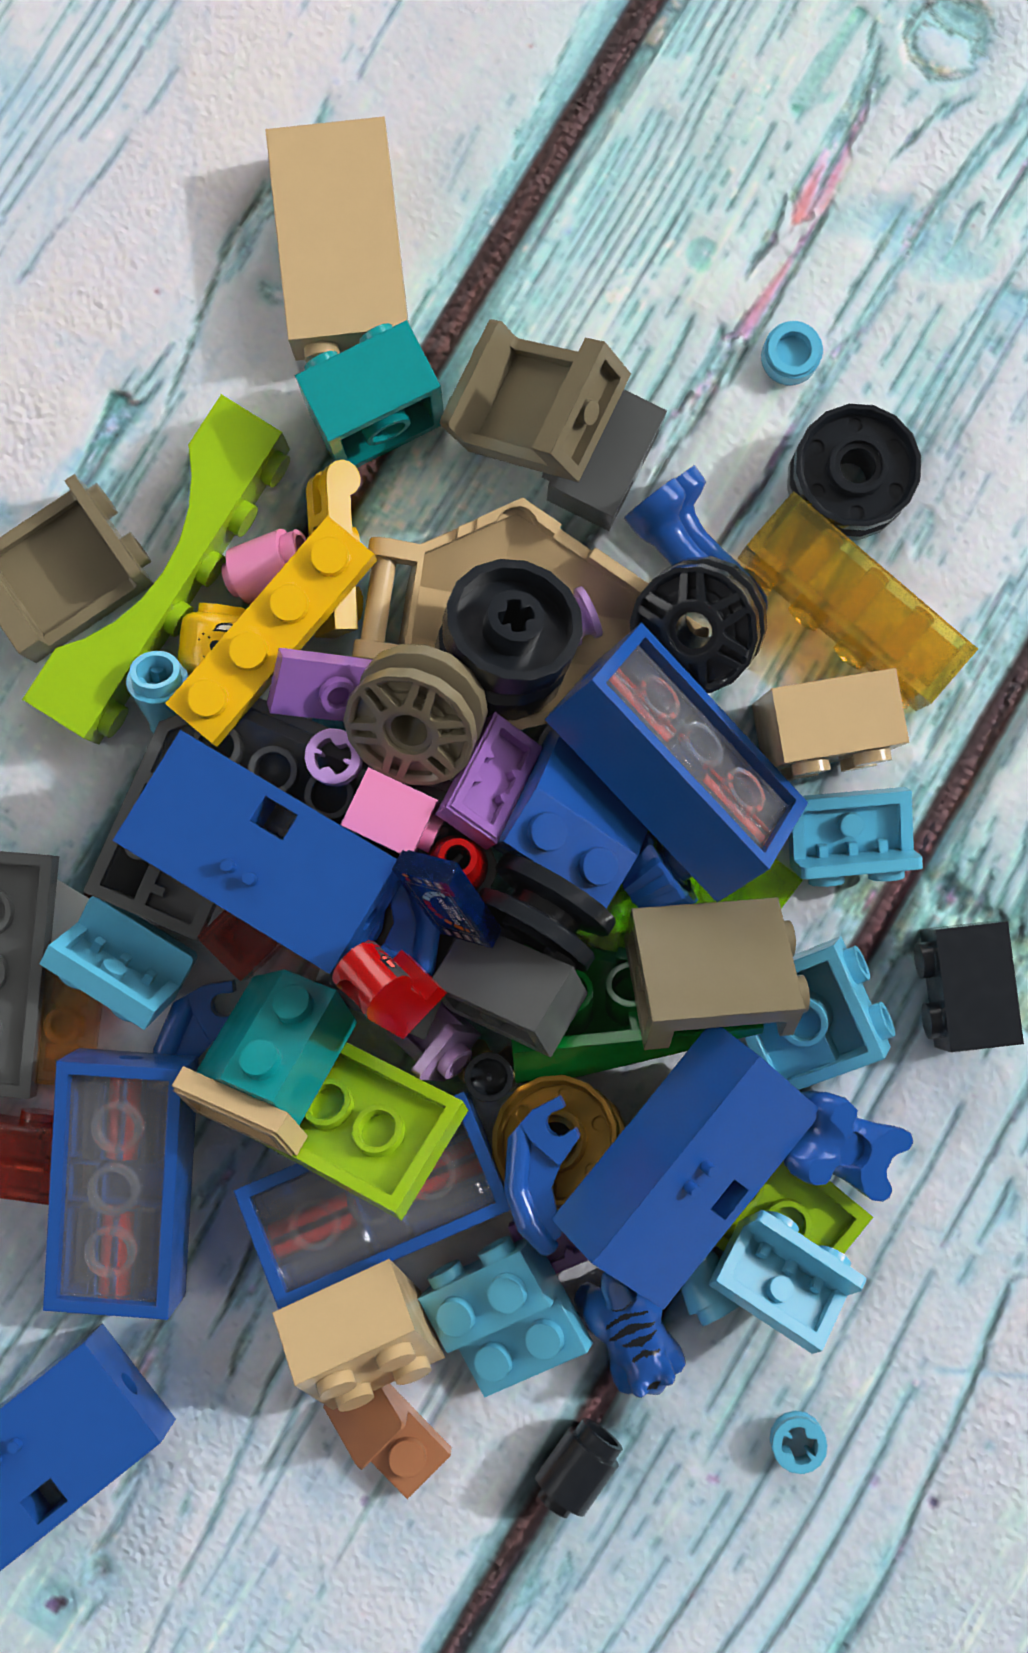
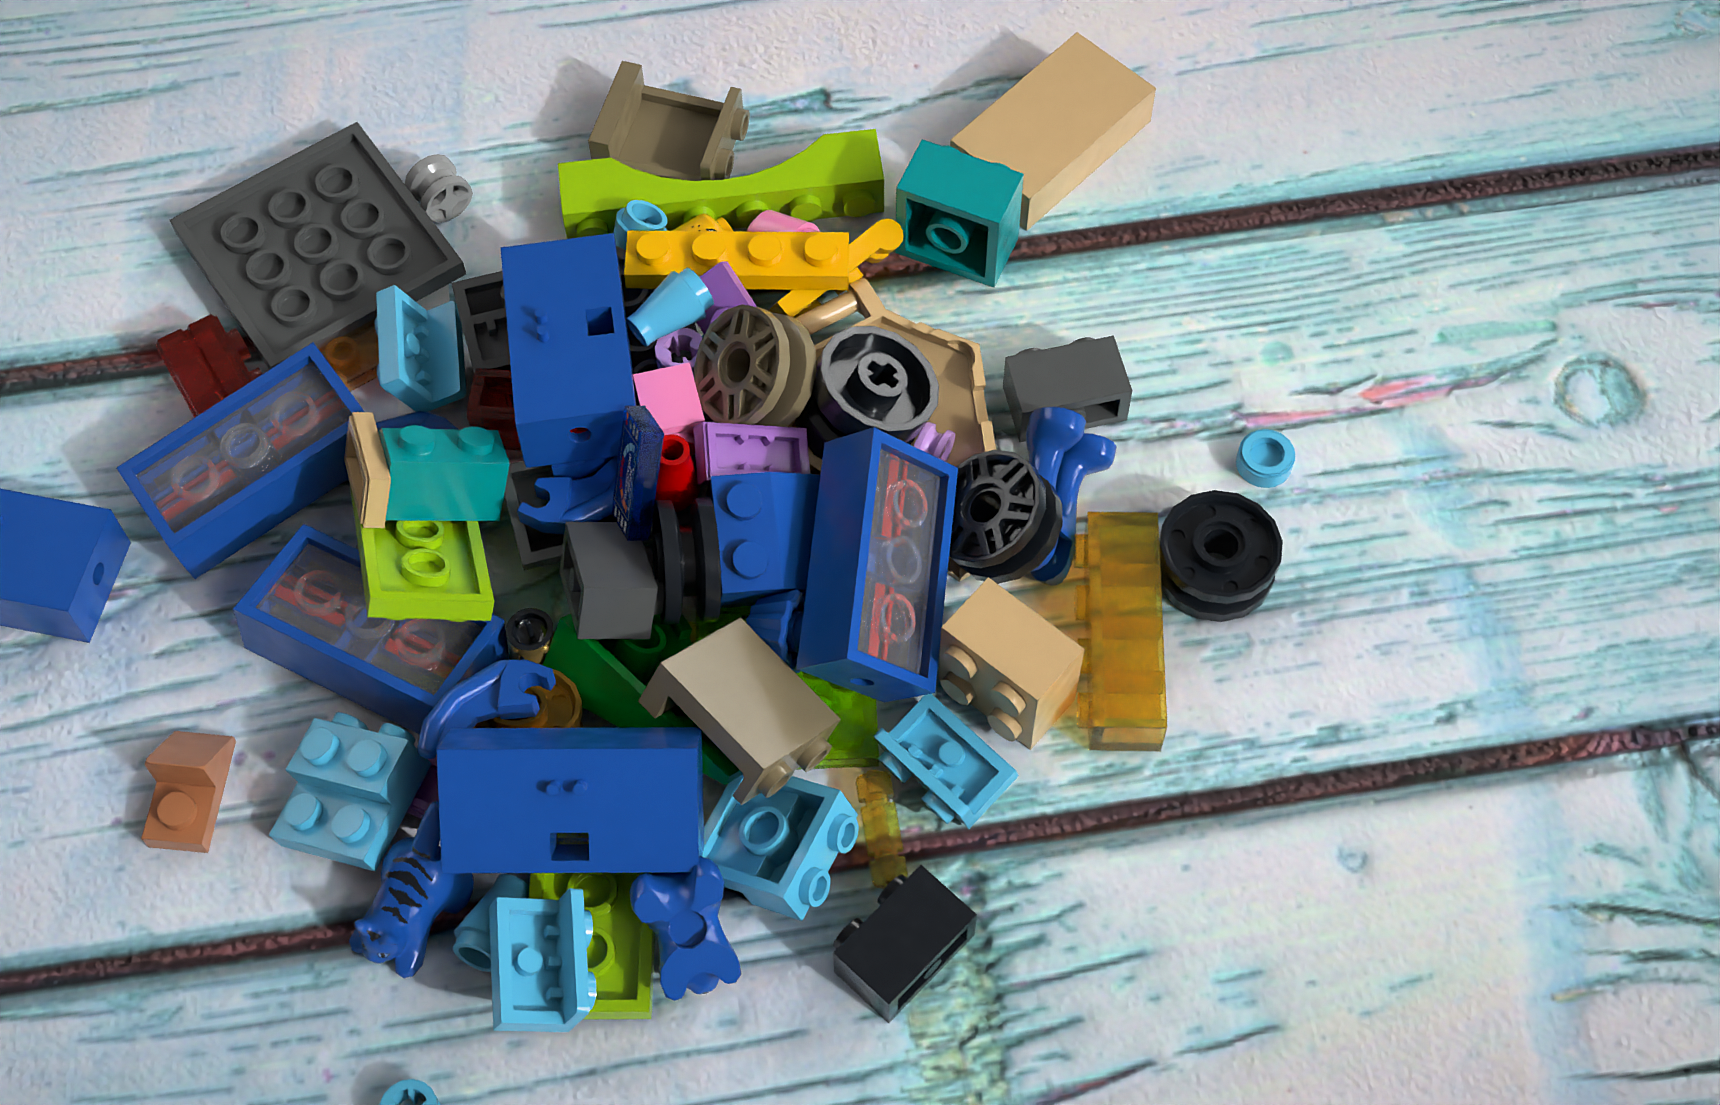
camera: 60 degrees right, 25 degrees down
(293, 737) = (672, 306): none -> medium azure cone
(358, 1337) = (251, 684): tan brick -> none
(387, 990) = (531, 476): red leg -> none
(445, 1048) = (527, 587): lavender bracket -> none
(535, 401) = (1055, 307): dark tan panel -> none
(578, 1469) = (259, 944): black brick -> none
(861, 925) = (881, 827): none -> clear yellow axle

